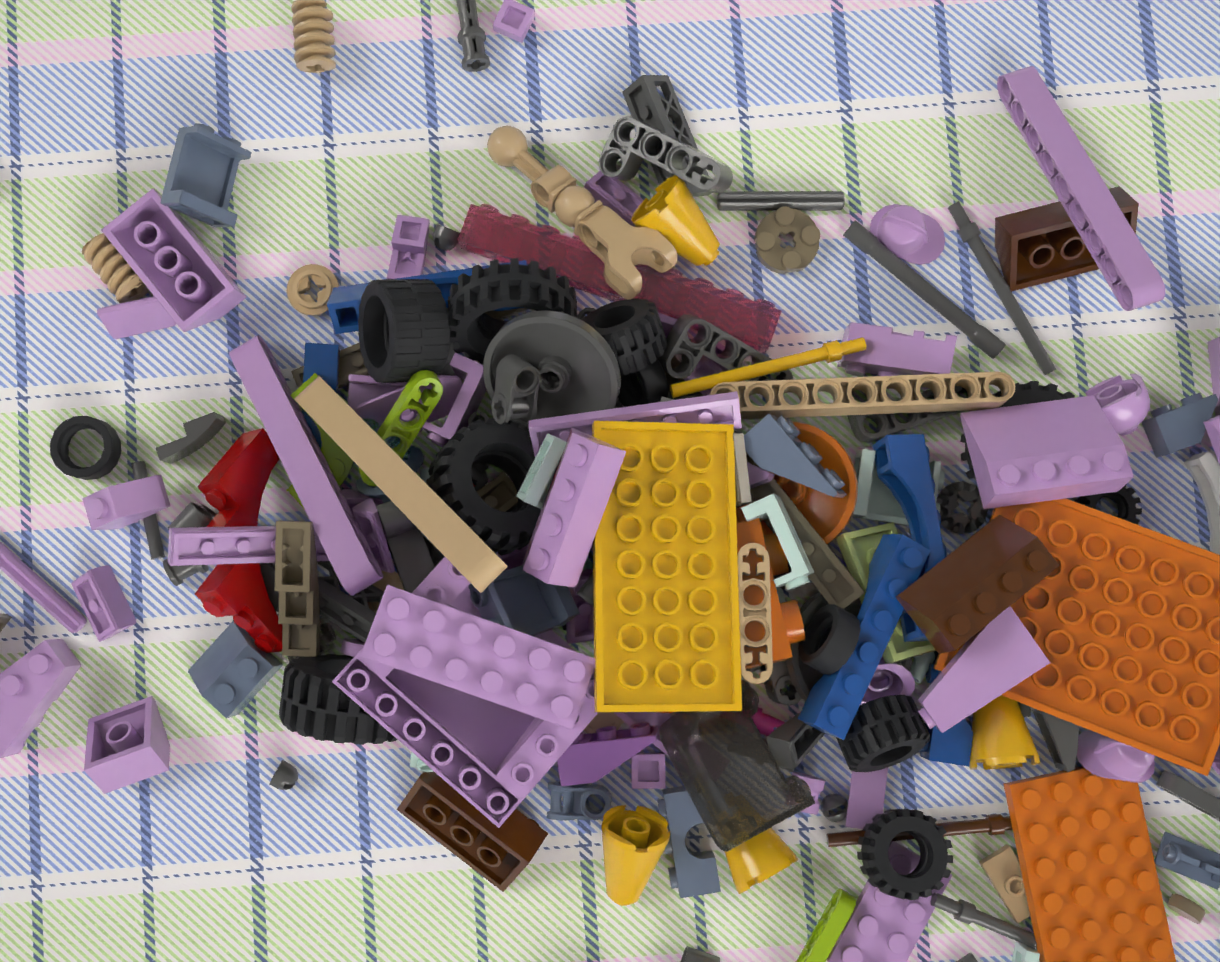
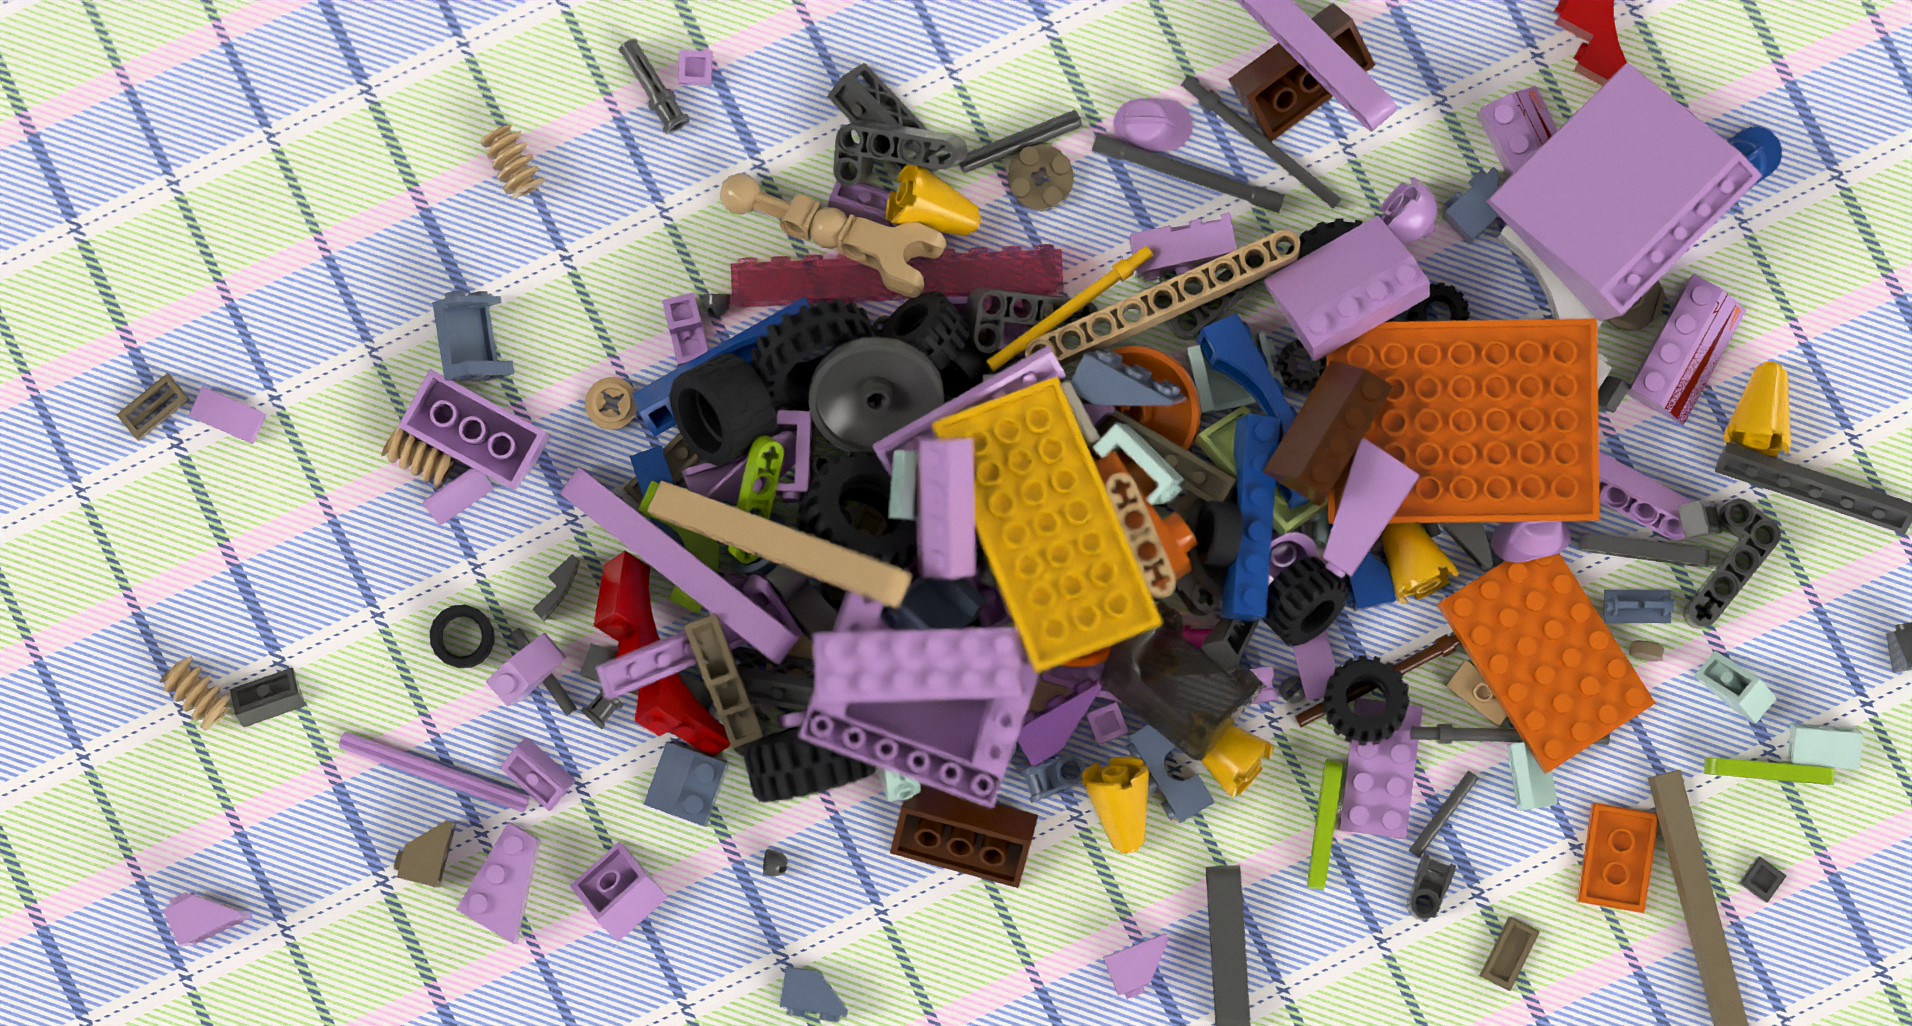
camera: 15 degrees left, 0 degrees up
(266, 916) = (811, 992): none -> sand blue slope
(515, 390) = (850, 421): dark grey piece -> none

